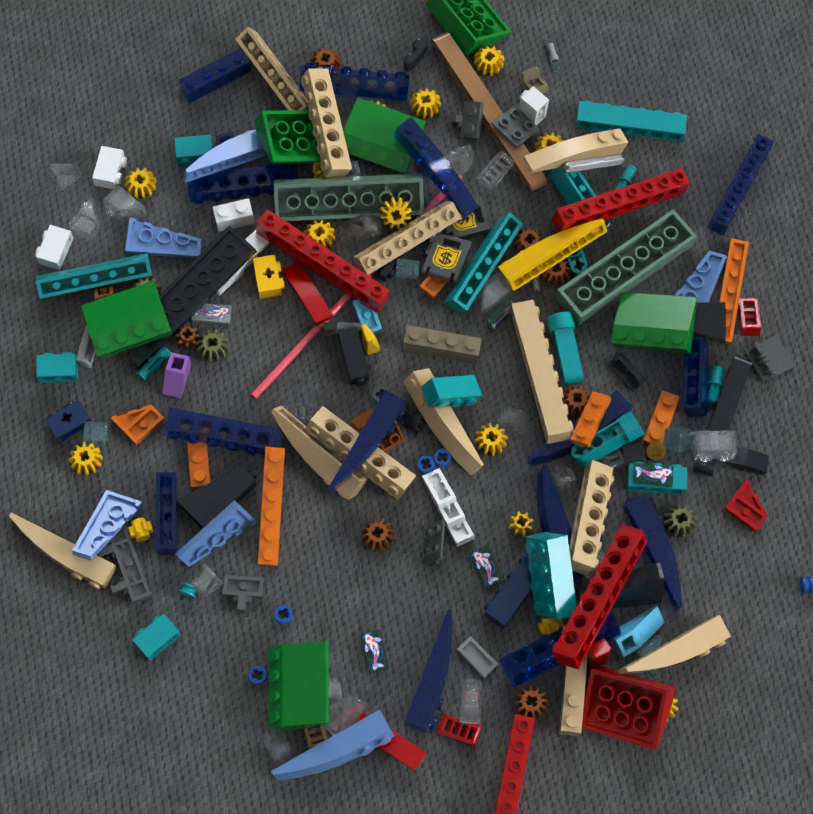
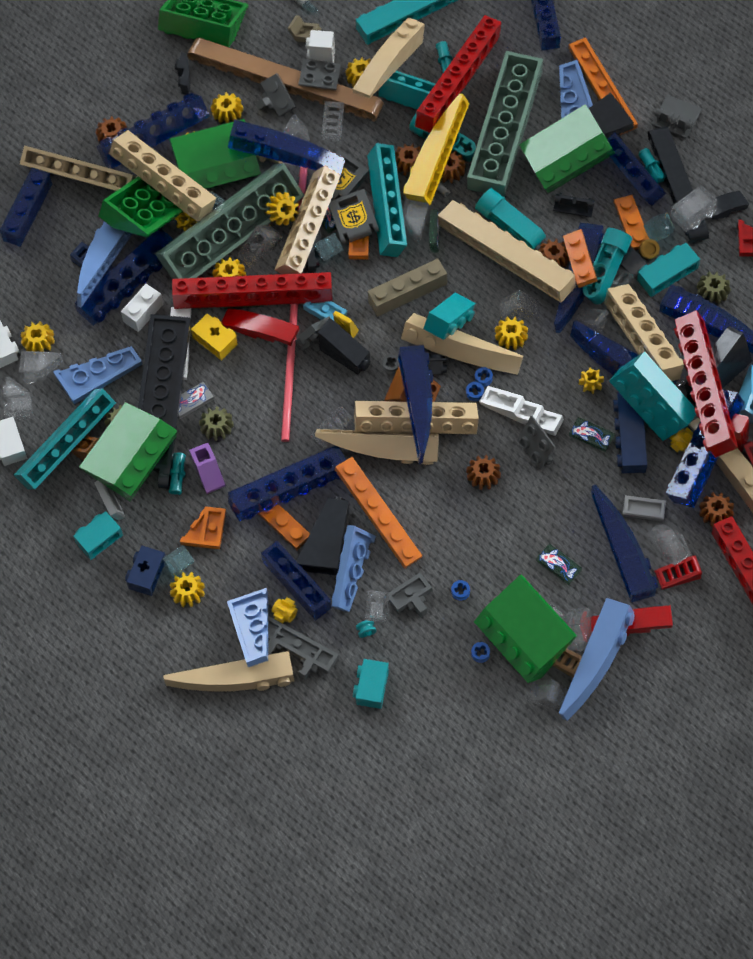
camera: 30 degrees left, 5 degrees down
(183, 335) = (189, 431): dark orange gear -> none
(192, 148) = (60, 279): teal brick -> none
(495, 63) = (250, 38): yellow gear -> none
(592, 163) = (409, 60): light grey axle -> none
(653, 474) = (665, 265): tile -> none
(749, 328) = (639, 105): red slope -> none

